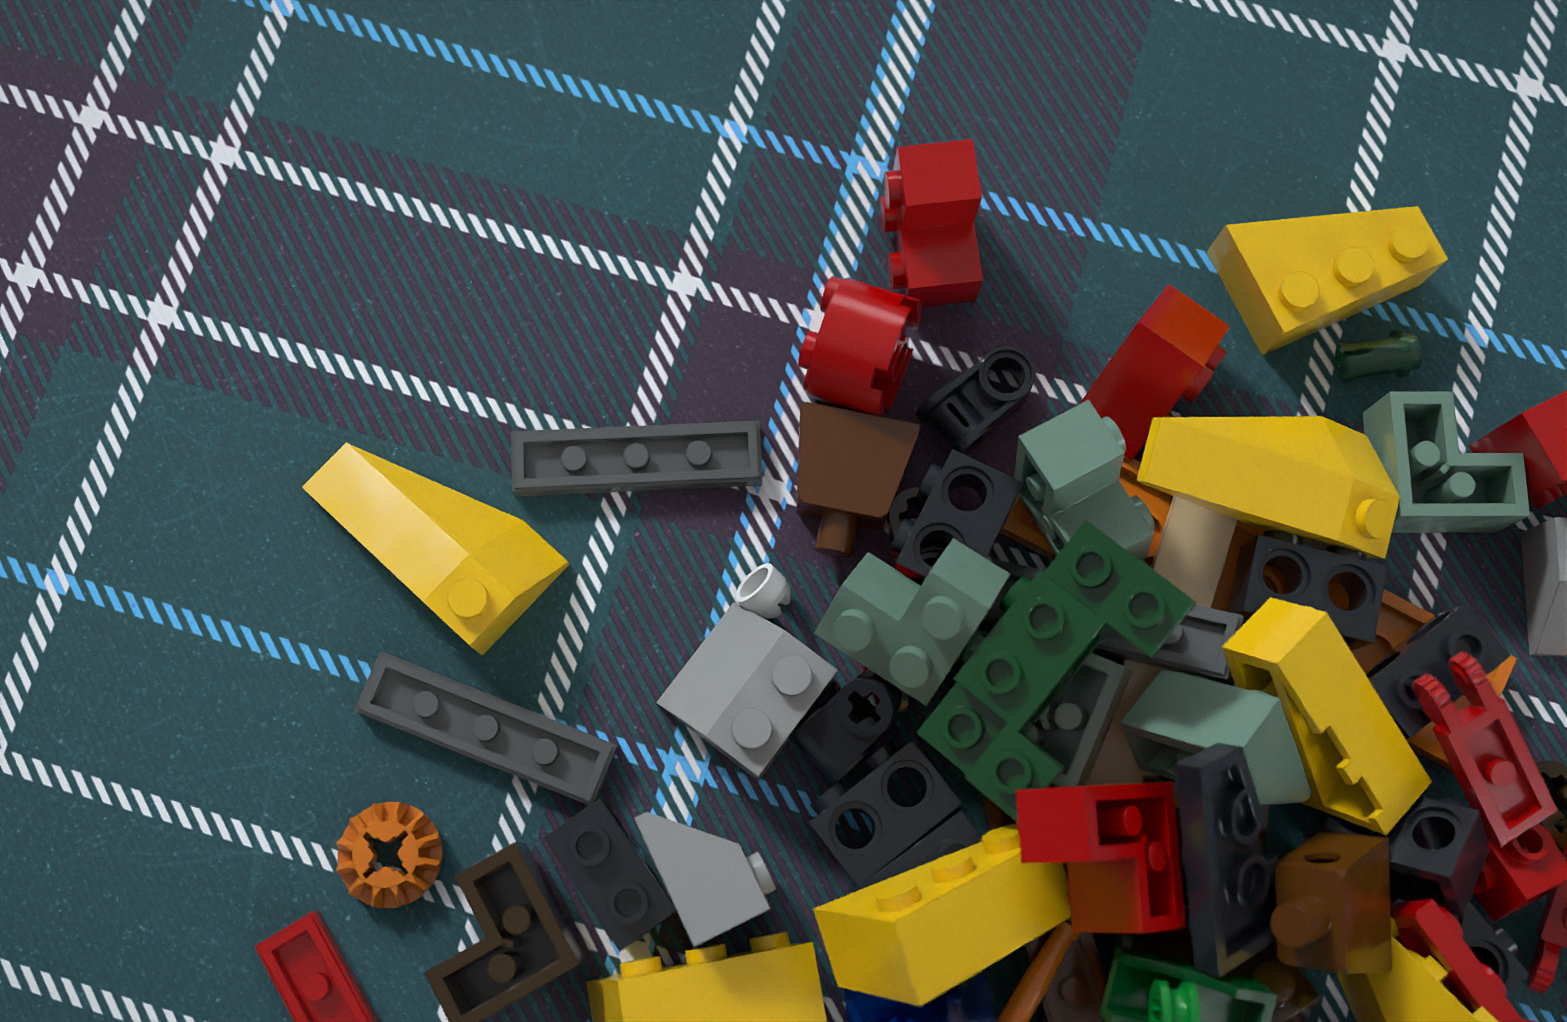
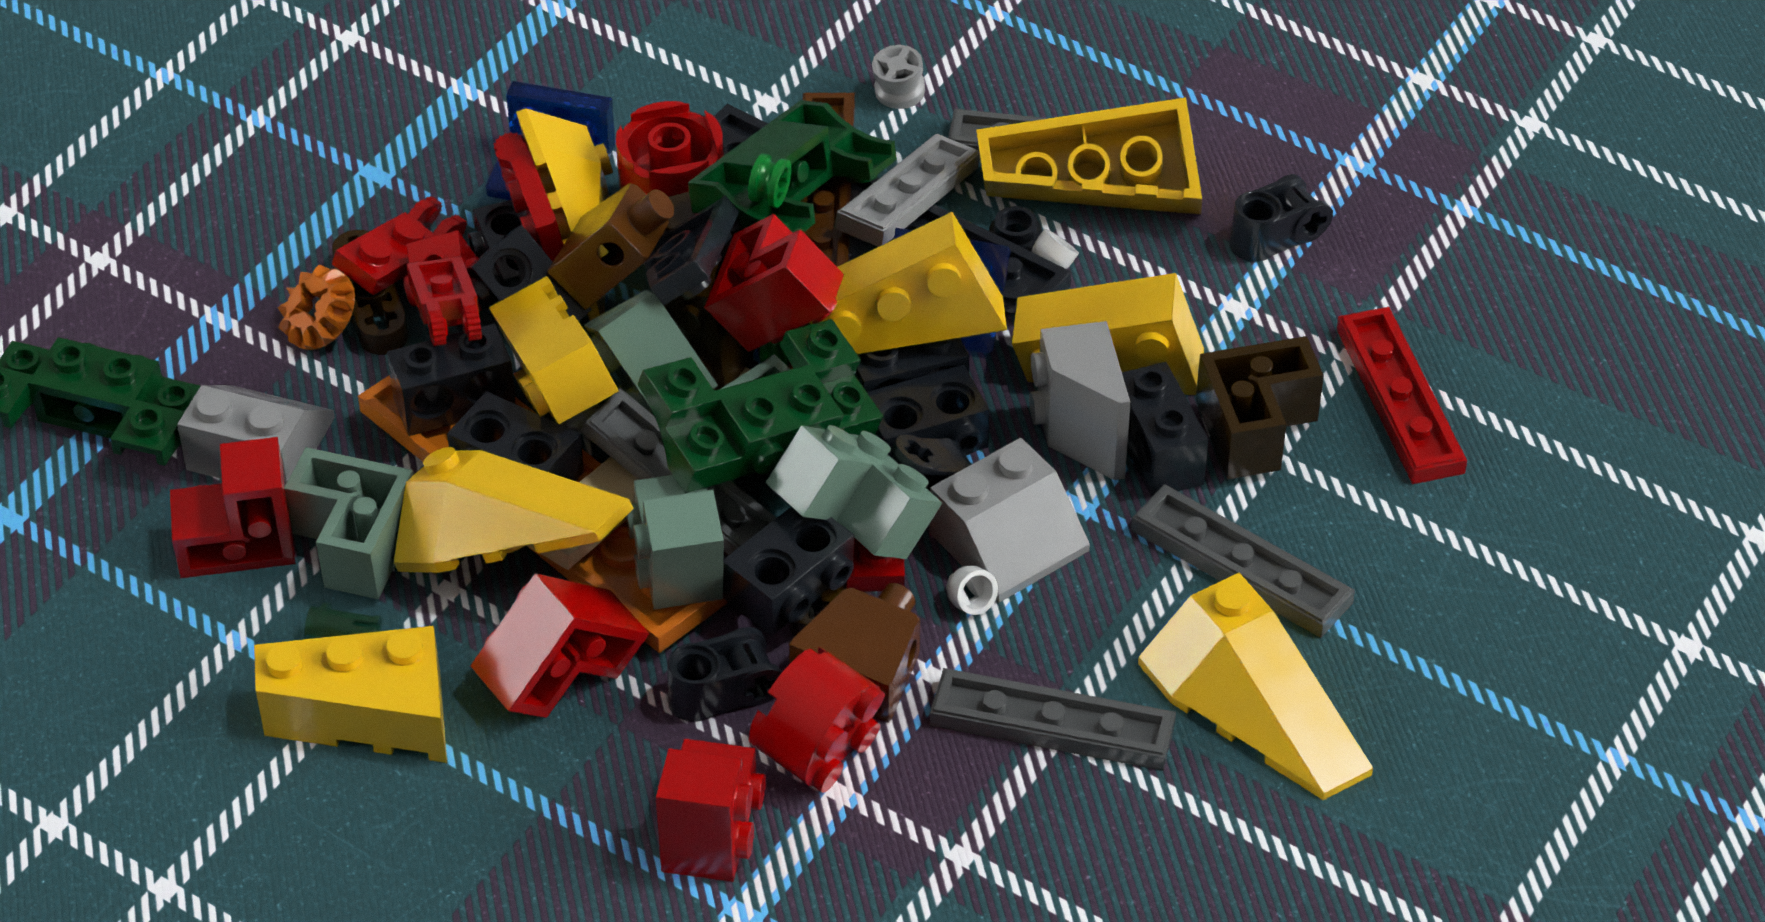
camera: 160 degrees left, 30 degrees down
(419, 853) = (1340, 512): orange gear -> none

